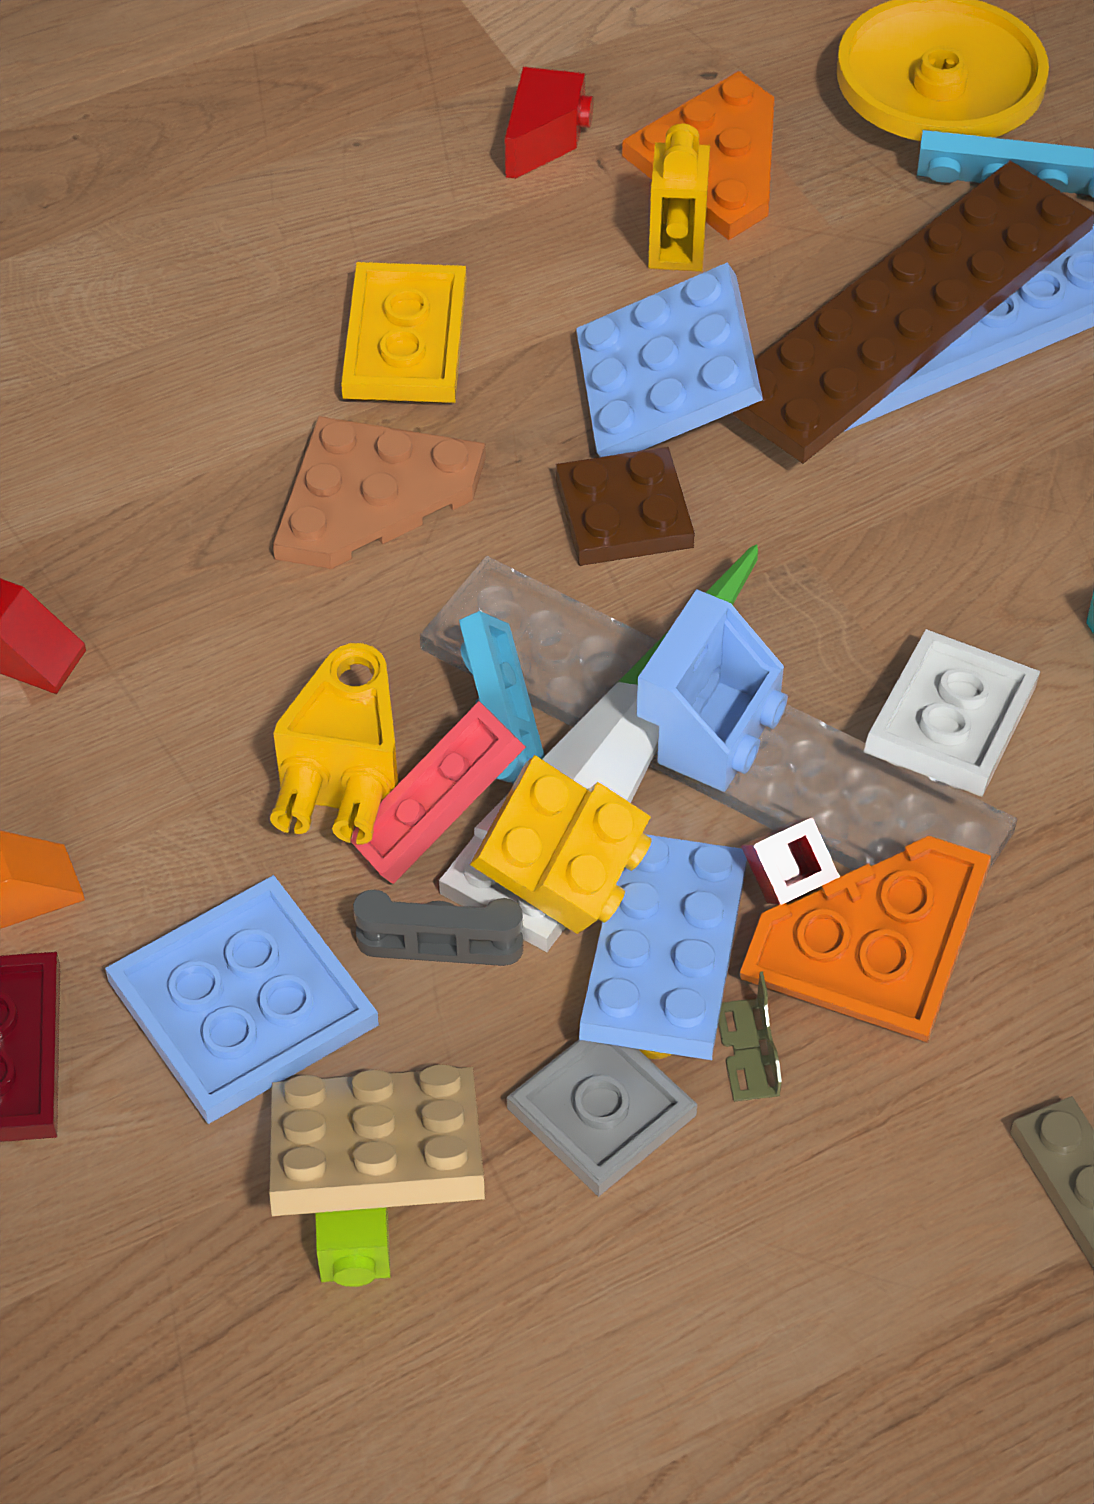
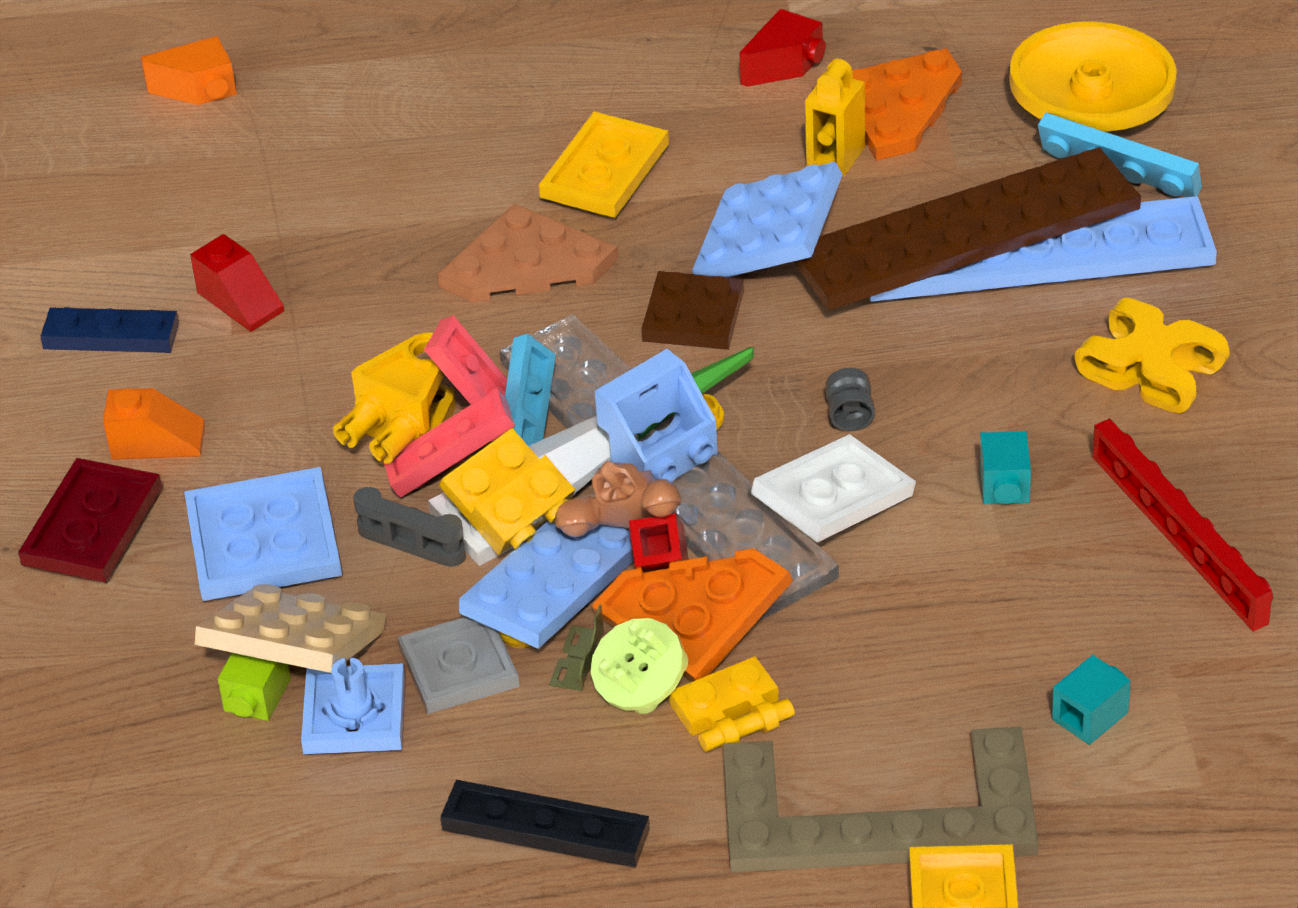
camera: 25 degrees right, 10 degrees down
(420, 676) = (464, 361): none -> coral plate
(506, 1230) = (352, 699): none -> light blue plate
(727, 811) = (618, 497): none -> nougat head
(839, 1071) = (624, 682): none -> yellowish green plate
(854, 1316) = (545, 823): none -> black plate
(892, 574) = (850, 399): none -> dark grey wheel
(970, 1048) = (725, 696): none -> yellow plate

